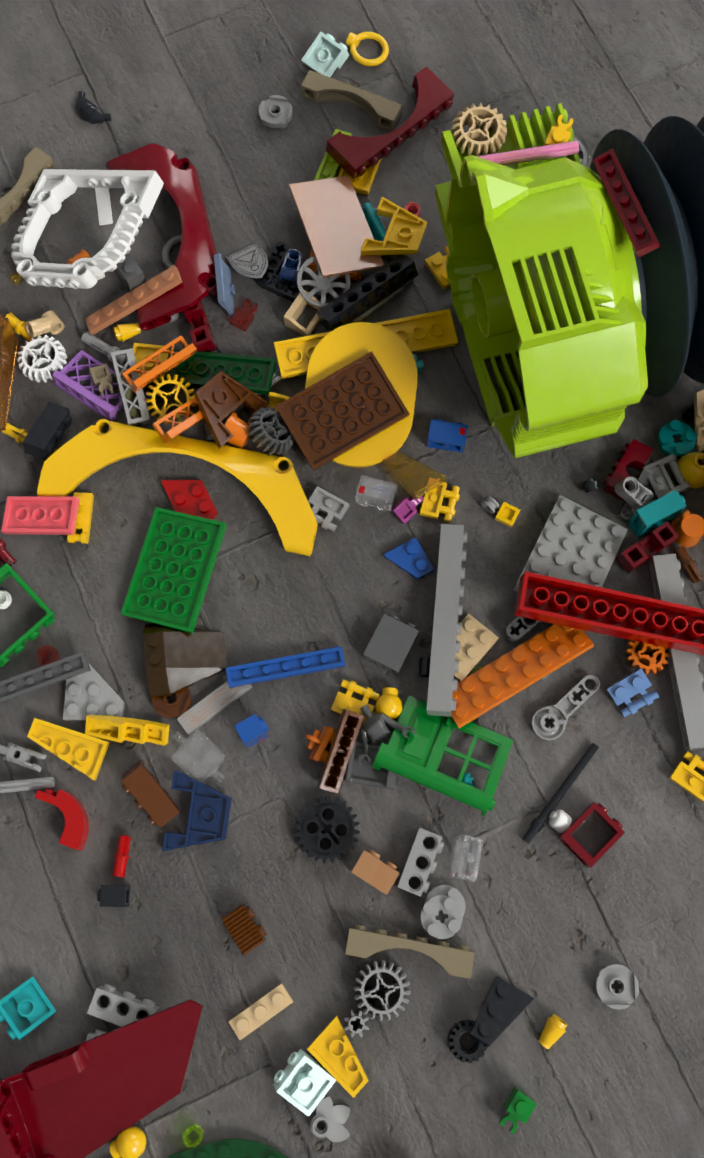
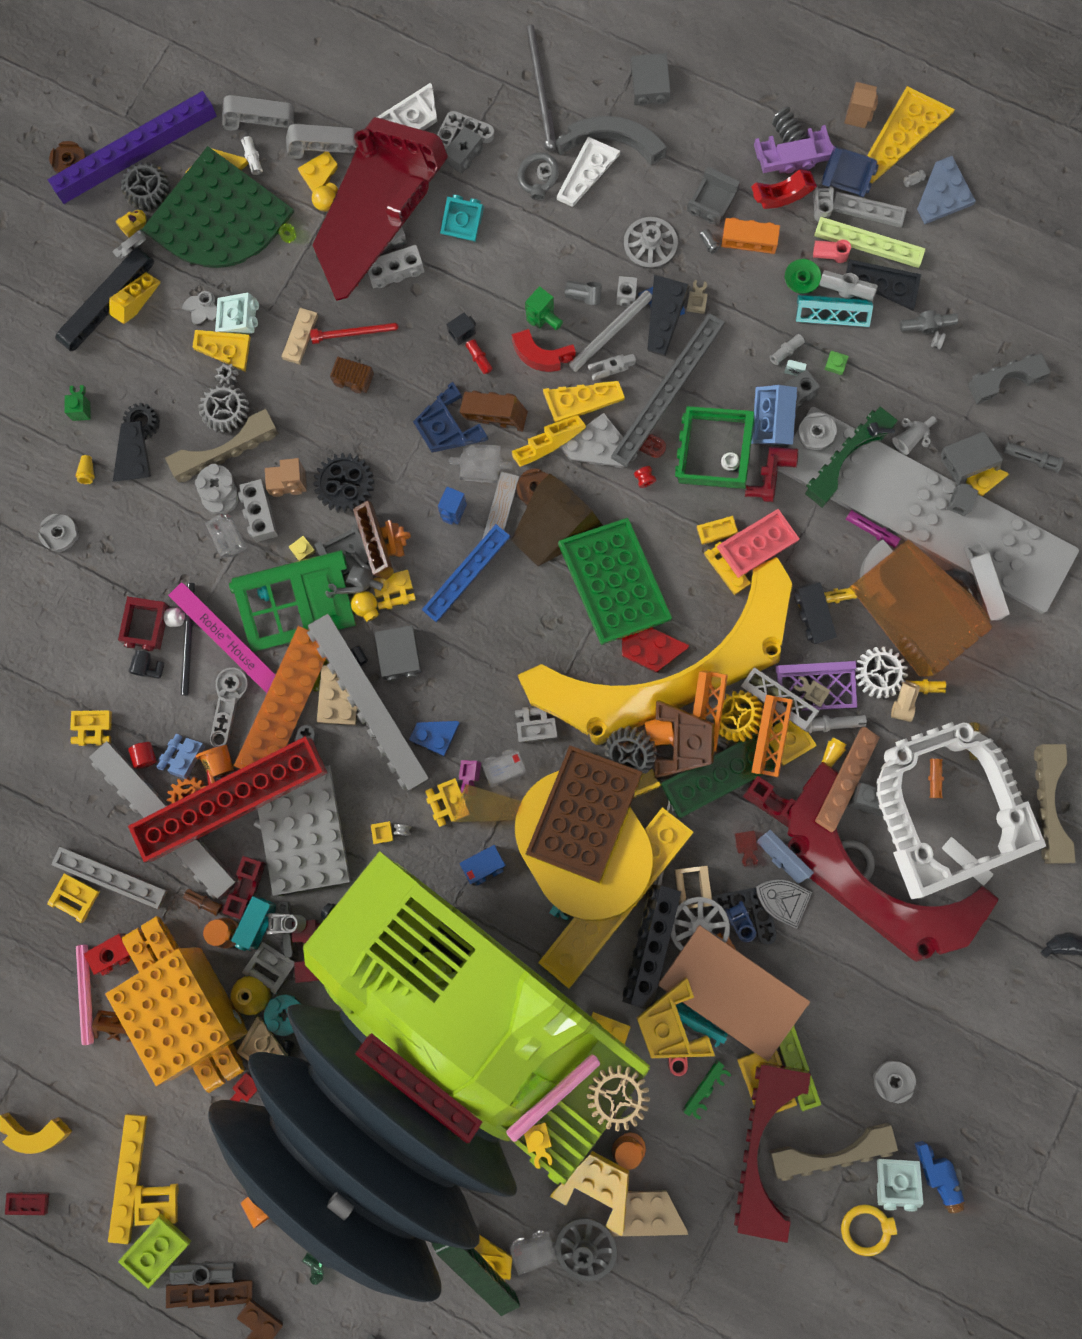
camera: 145 degrees right, 5 degrees up
(34, 853) = (540, 309): none -> green brick
(61, 552) = (717, 530): none -> yellow plate
(78, 637) = (645, 477): none -> red wheel
(244, 995) = (318, 335): none -> red piece
(295, 43) = (943, 1175): none -> blue plate
(406, 188) = (705, 1089): none -> green plate
(406, 798) = (302, 549): none -> light yellow plate
(528, 769) = (222, 635): none -> dark pink tile
(605, 663) = (216, 762): none -> orange hat
(617, 798) = (140, 665): none -> black piece
(665, 717) = (142, 755): none -> red piece

